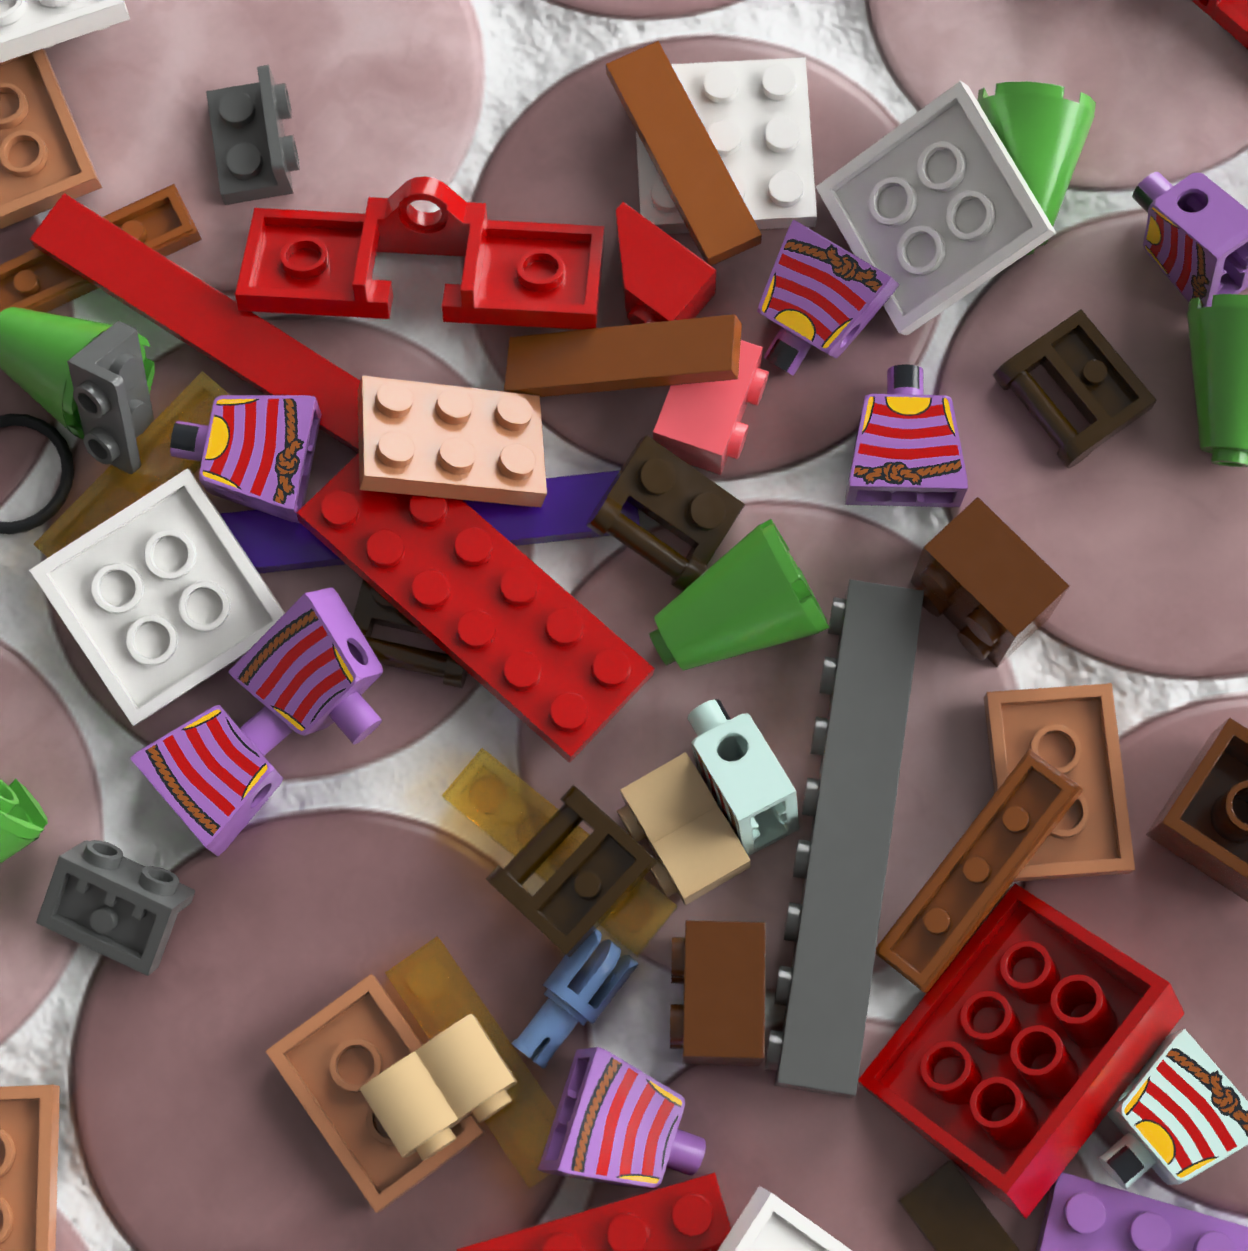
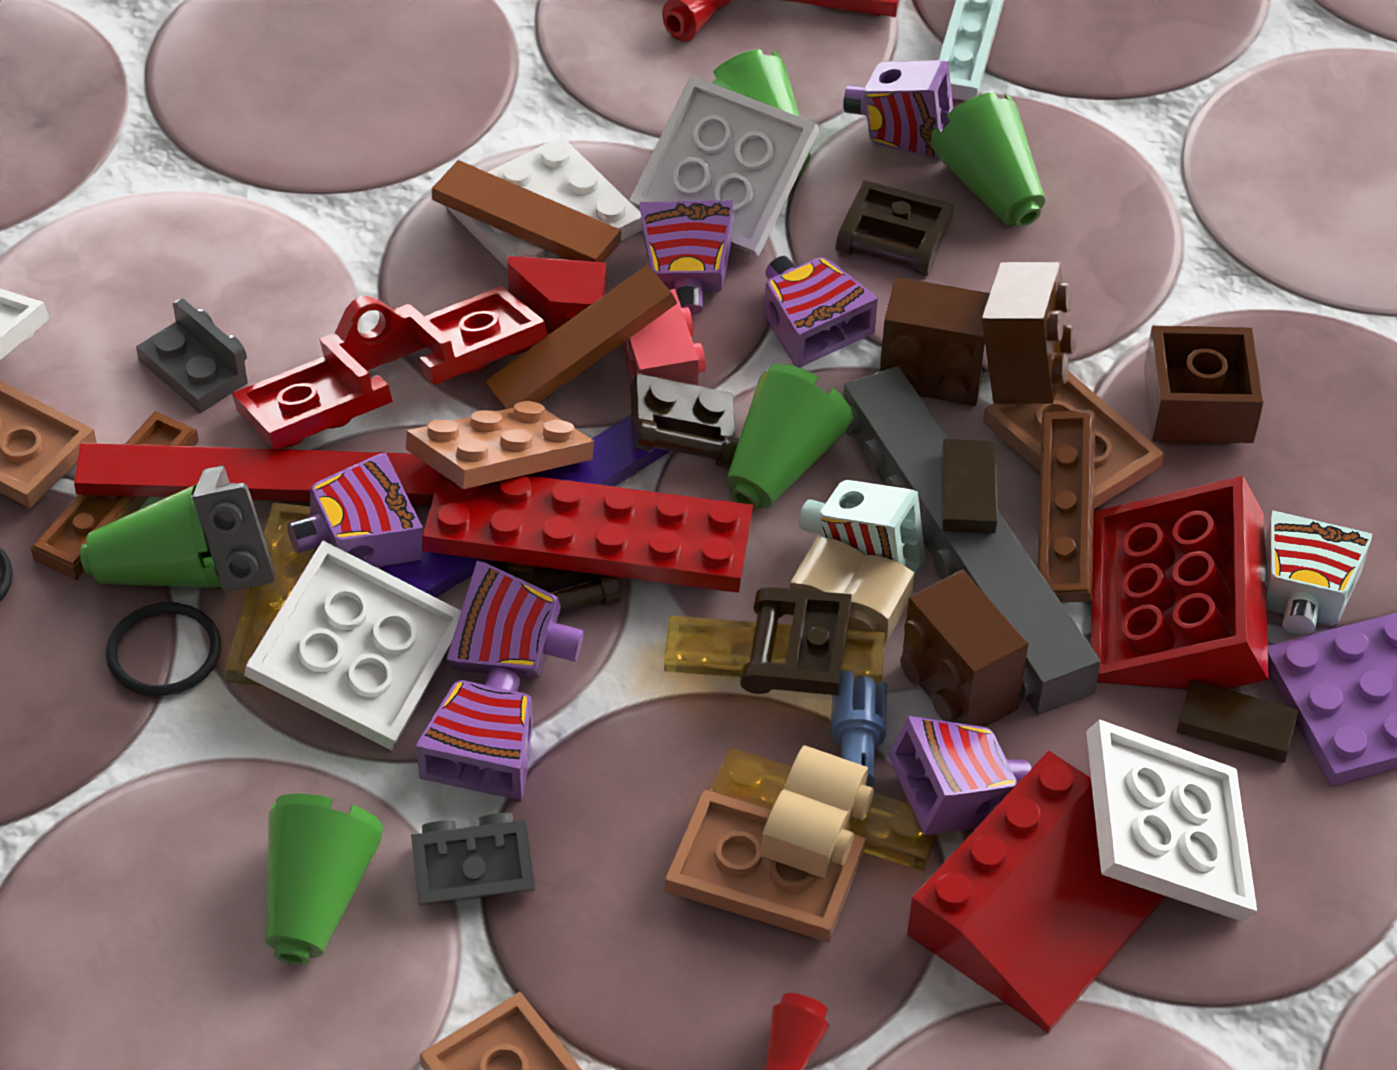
camera: 40 degrees left, 25 degrees down
(876, 798) = (969, 486): none -> dark brown tile
(1081, 645) = (1028, 332): none -> reddish brown brick

